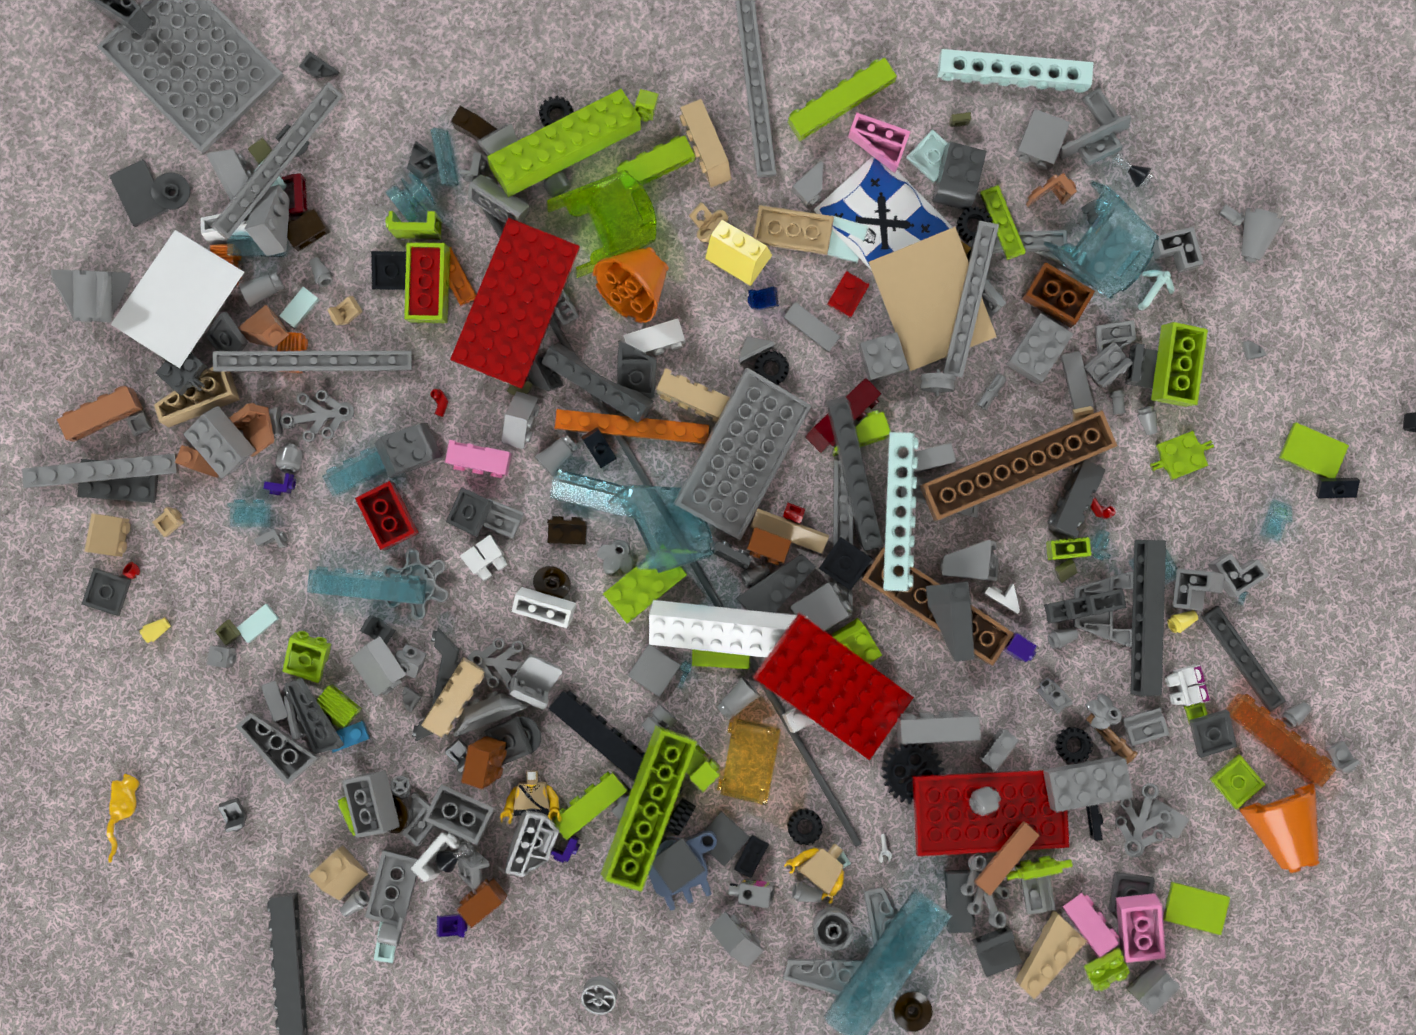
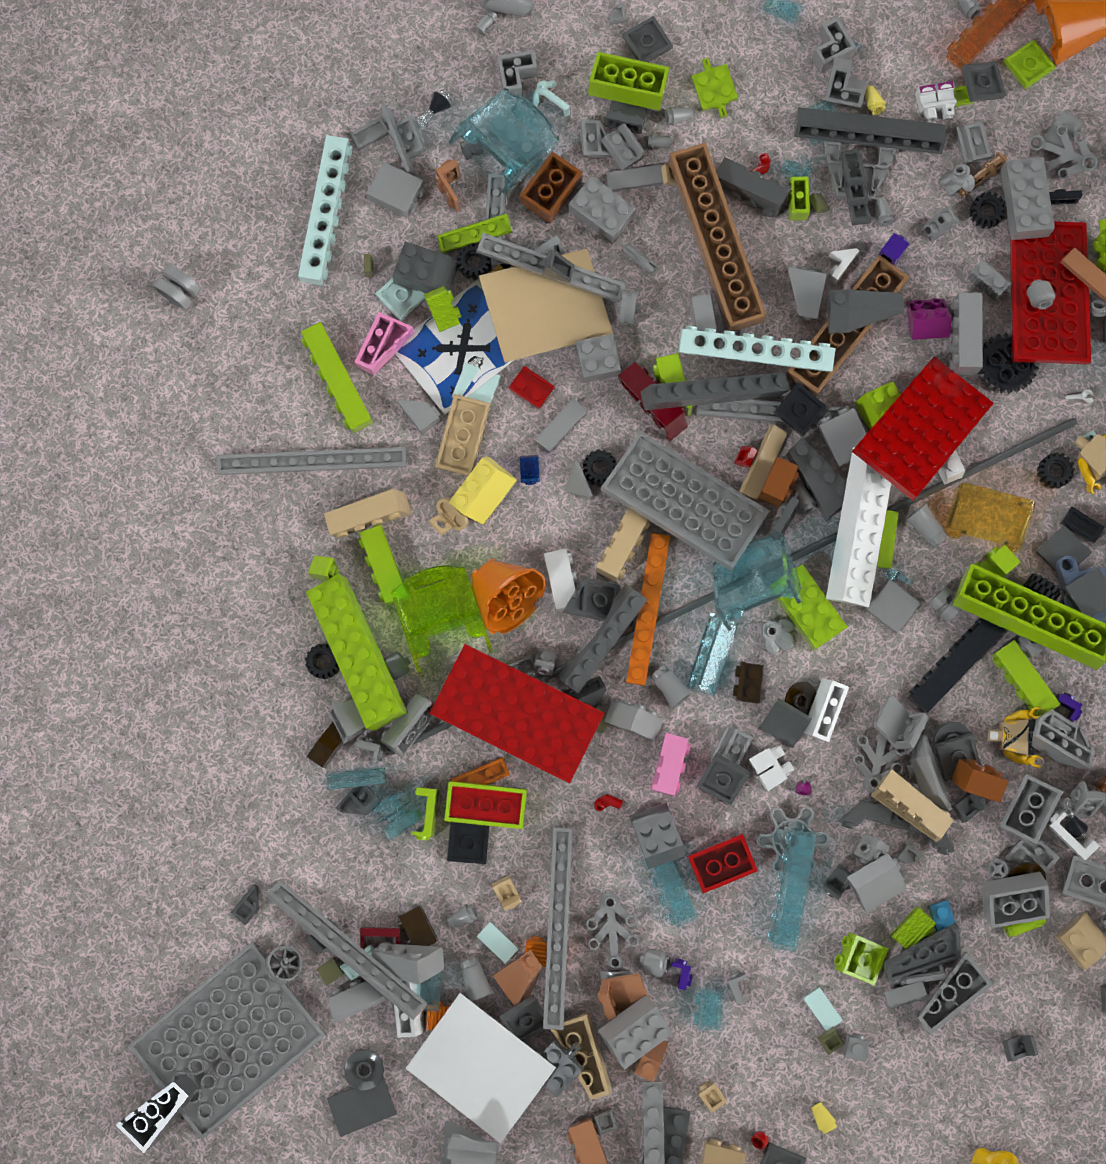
camera: 85 degrees left, 5 degrees down
(262, 105) = (283, 964): none -> light grey wheel
(466, 591) = (803, 789): none -> magenta hinge
(528, 569) = (785, 723): none -> dark grey tile
(571, 329) = (545, 661): none -> light grey bracket
(599, 447) = (667, 643): black plate -> none
(919, 195) = (442, 309): none -> lime brick
(952, 689) = (928, 319): none -> magenta slope
(969, 305) = (558, 267): none -> dark grey slope
(1226, 382) = (647, 40): none -> dark grey plate
(1243, 658) = (912, 49): dark grey tile -> none

